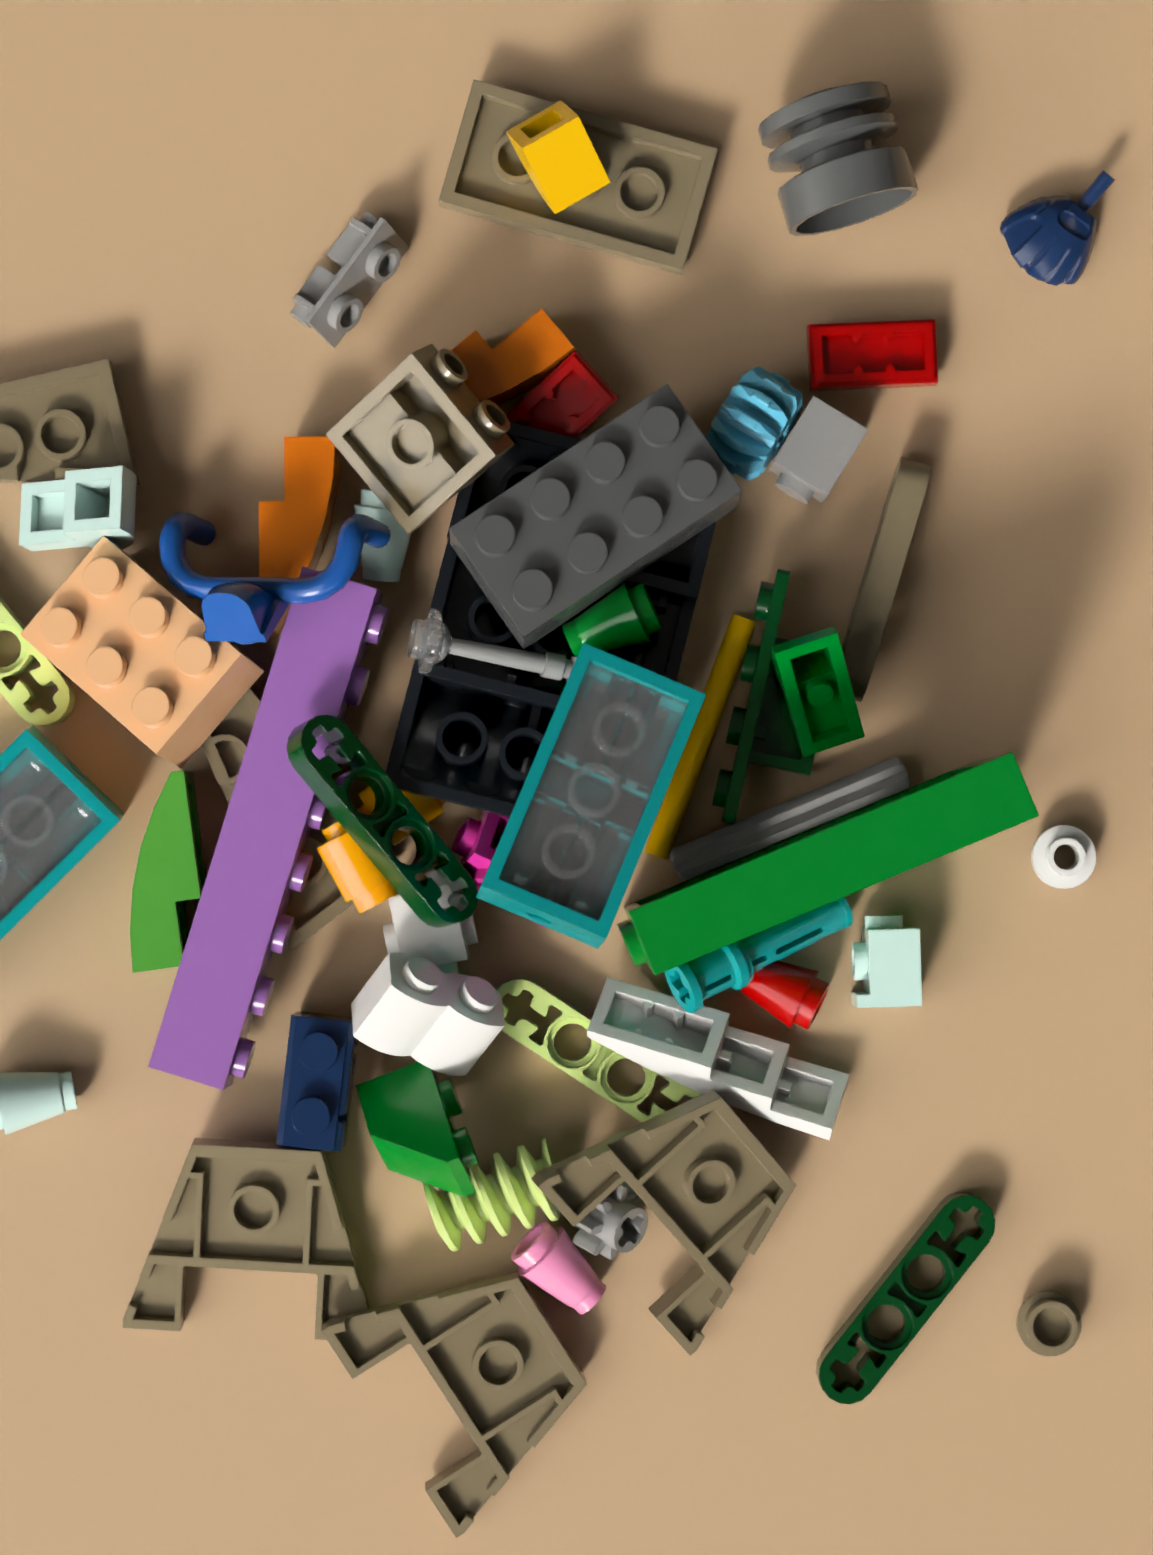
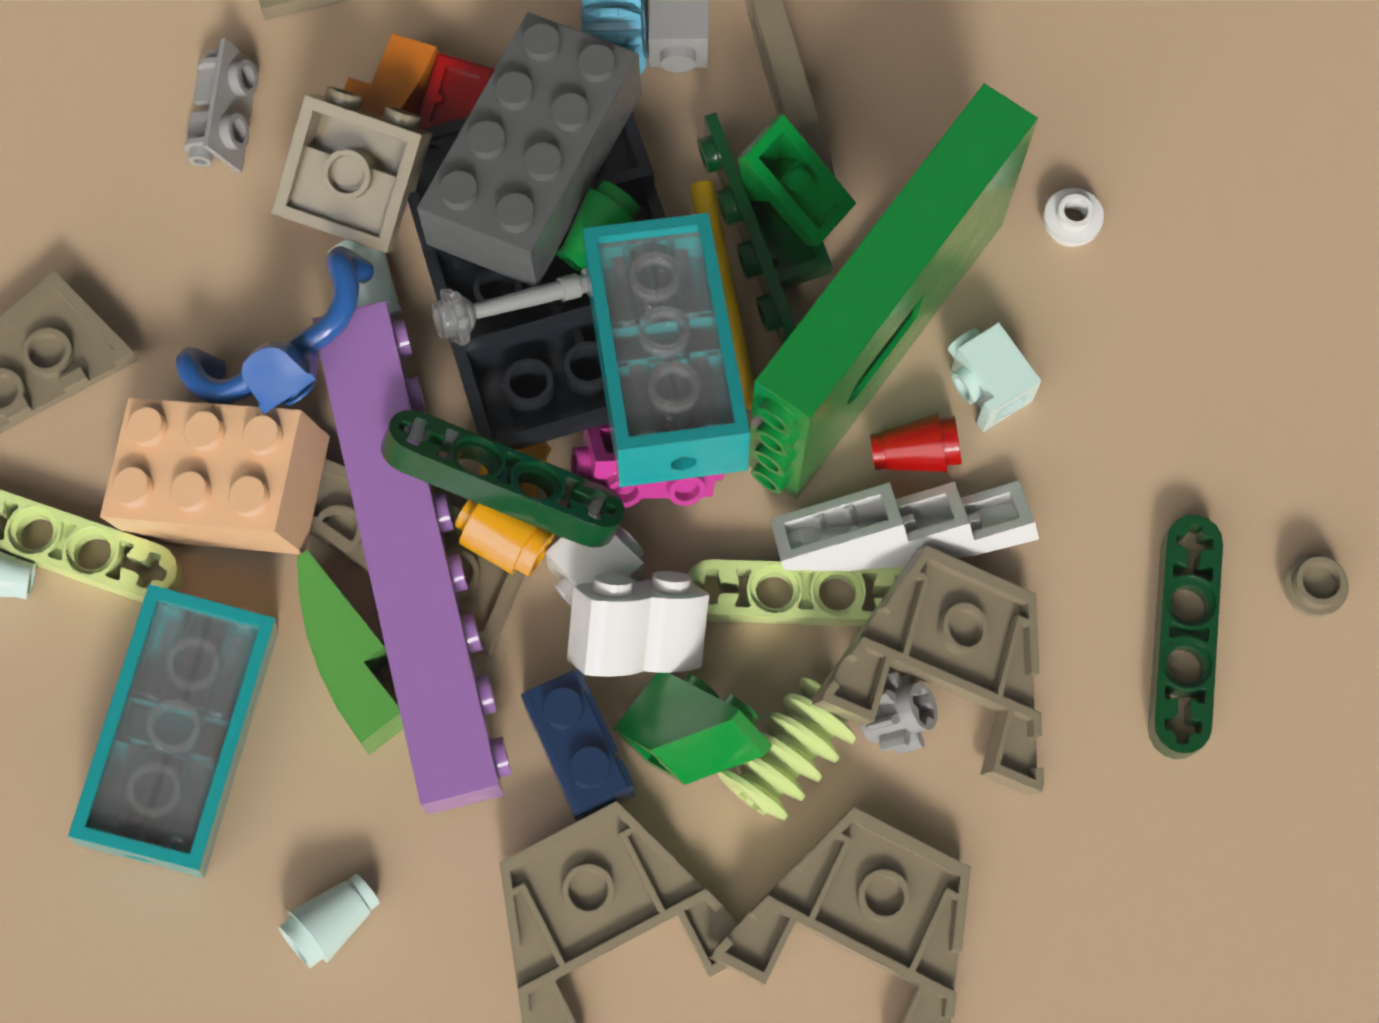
camera: 30 degrees left, 15 degrees down
(79, 509) = (96, 397): light aqua brick -> none
(297, 528) = (288, 296): orange slope -> none
(556, 1266) = (882, 785): bright pink cone -> none
(737, 962) = (866, 434): teal pin -> none

